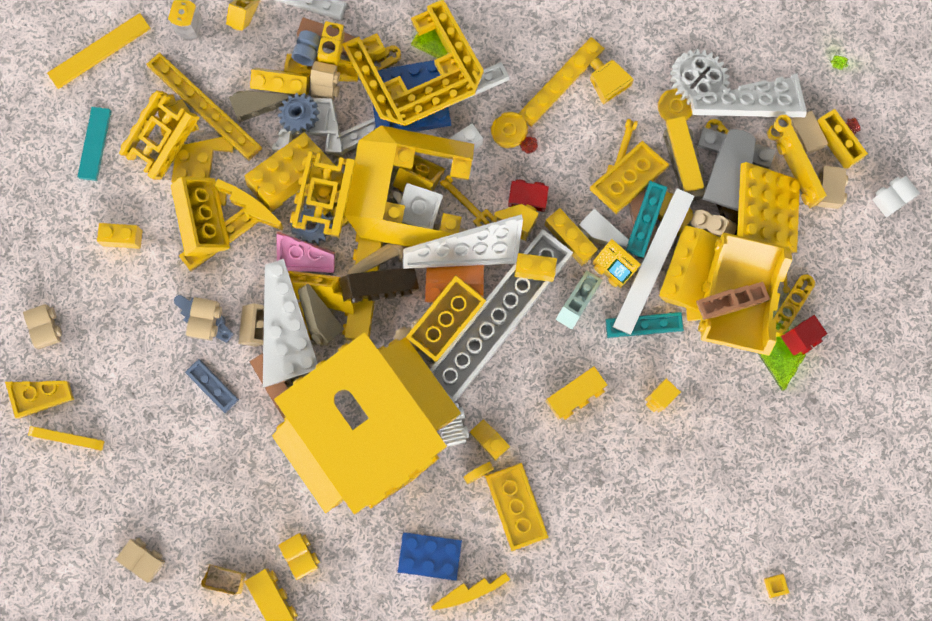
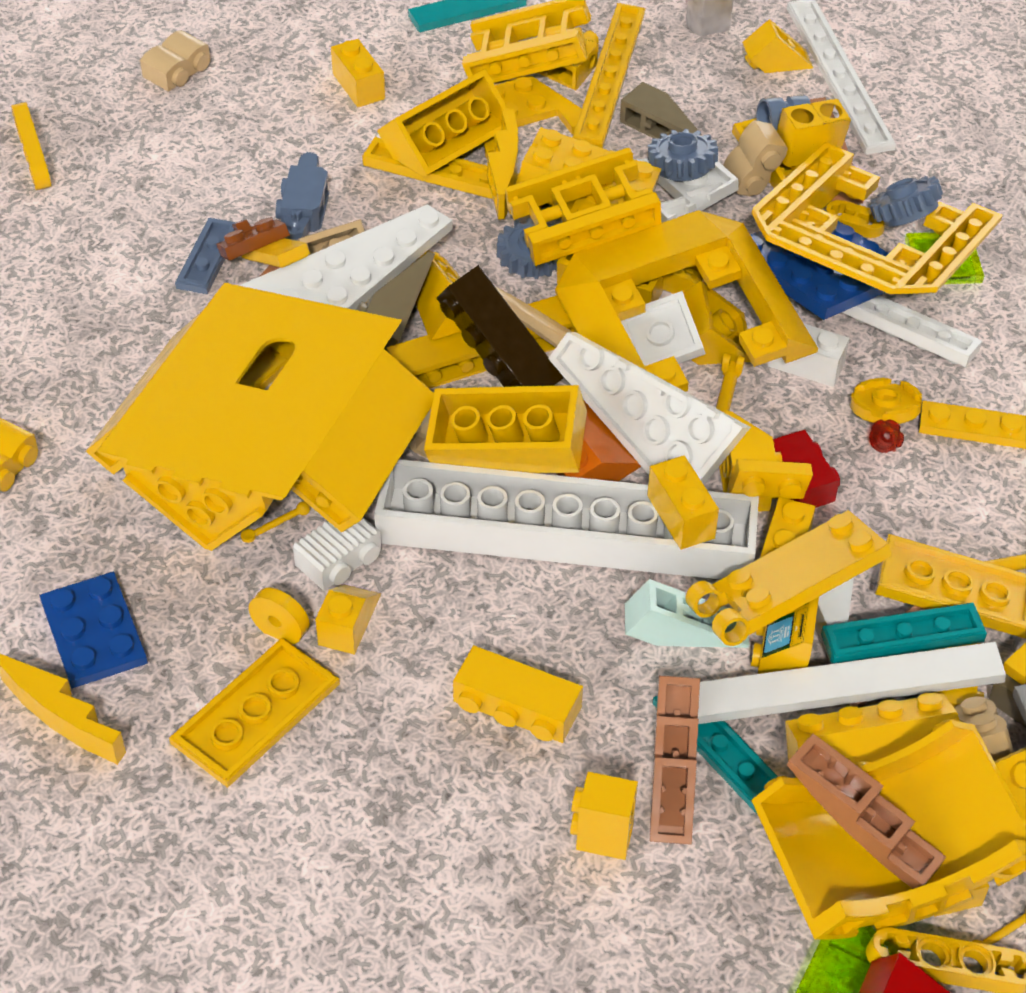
camera: 60 degrees right, 30 degrees down
(33, 397) = (74, 97): yellow wing -> none
(203, 319) = (296, 181): tan brick -> none
(222, 361) = (248, 238): none -> dark orange hinge
(240, 355) = (279, 253): none -> yellow tile
(280, 81) = (709, 116): yellow brick -> none
(304, 255) = (476, 243): bright pink wing -> none
(401, 33) = (906, 201): none -> sand blue gear
(538, 226) = (770, 479): none -> yellow plate
(601, 247) = (789, 577): none -> yellow hinge
(646, 349) = (675, 760): none -> nougat slope

